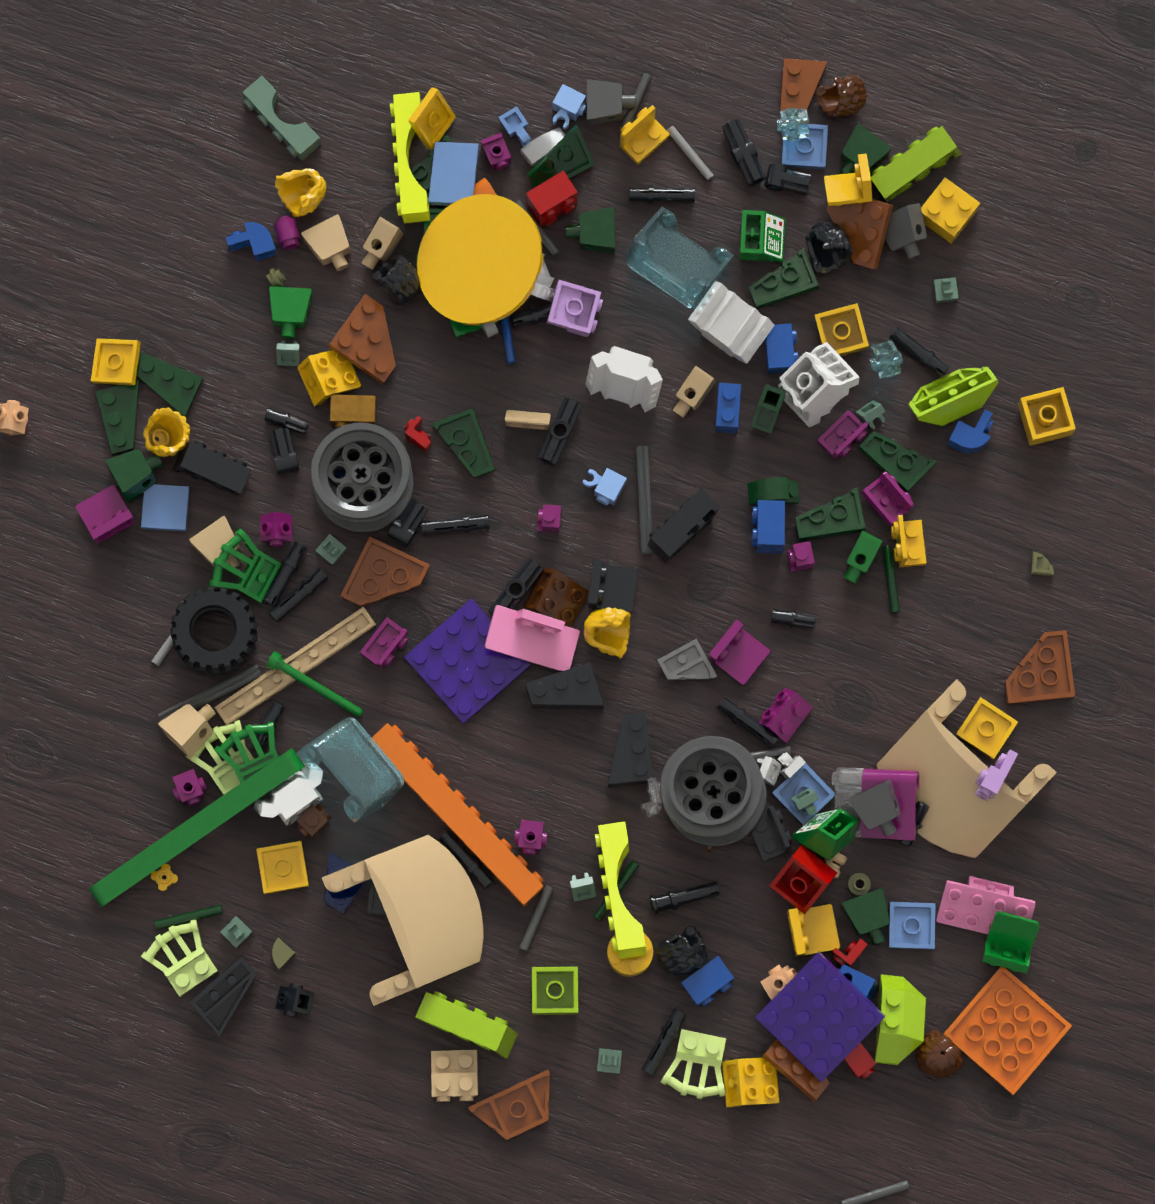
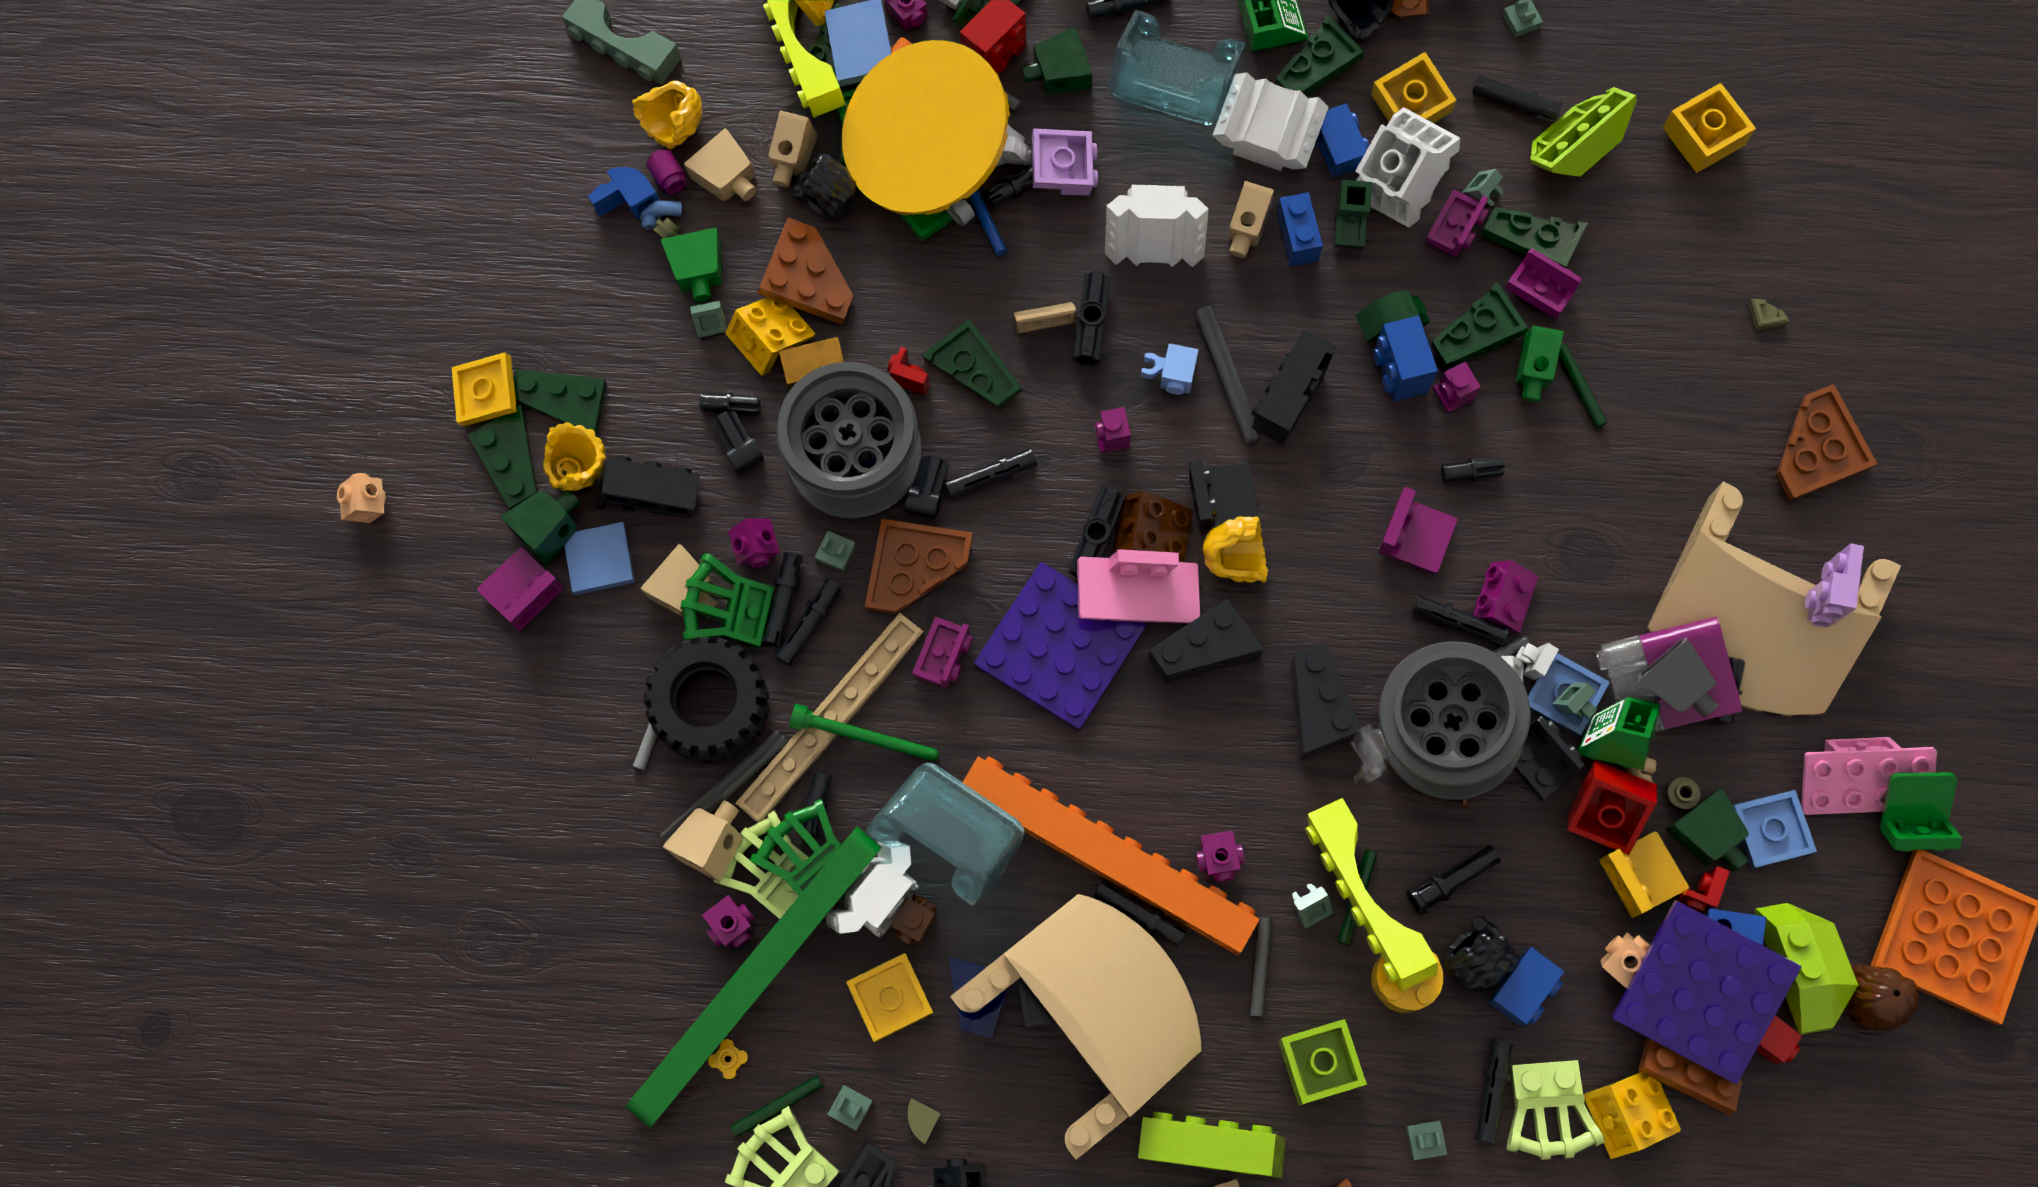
camera: 10 degrees left, 5 degrees down
(272, 260) = (657, 210): none -> medium blue arm
(687, 663) = (1353, 566): flat silver wing -> none
(886, 359) = (1480, 115): clear light blue brick -> none
(909, 542) = (1587, 331): yellow bracket -> none
(971, 439) = (1620, 183): blue brick -> none
(986, 728) = (1778, 536): yellow plate -> none

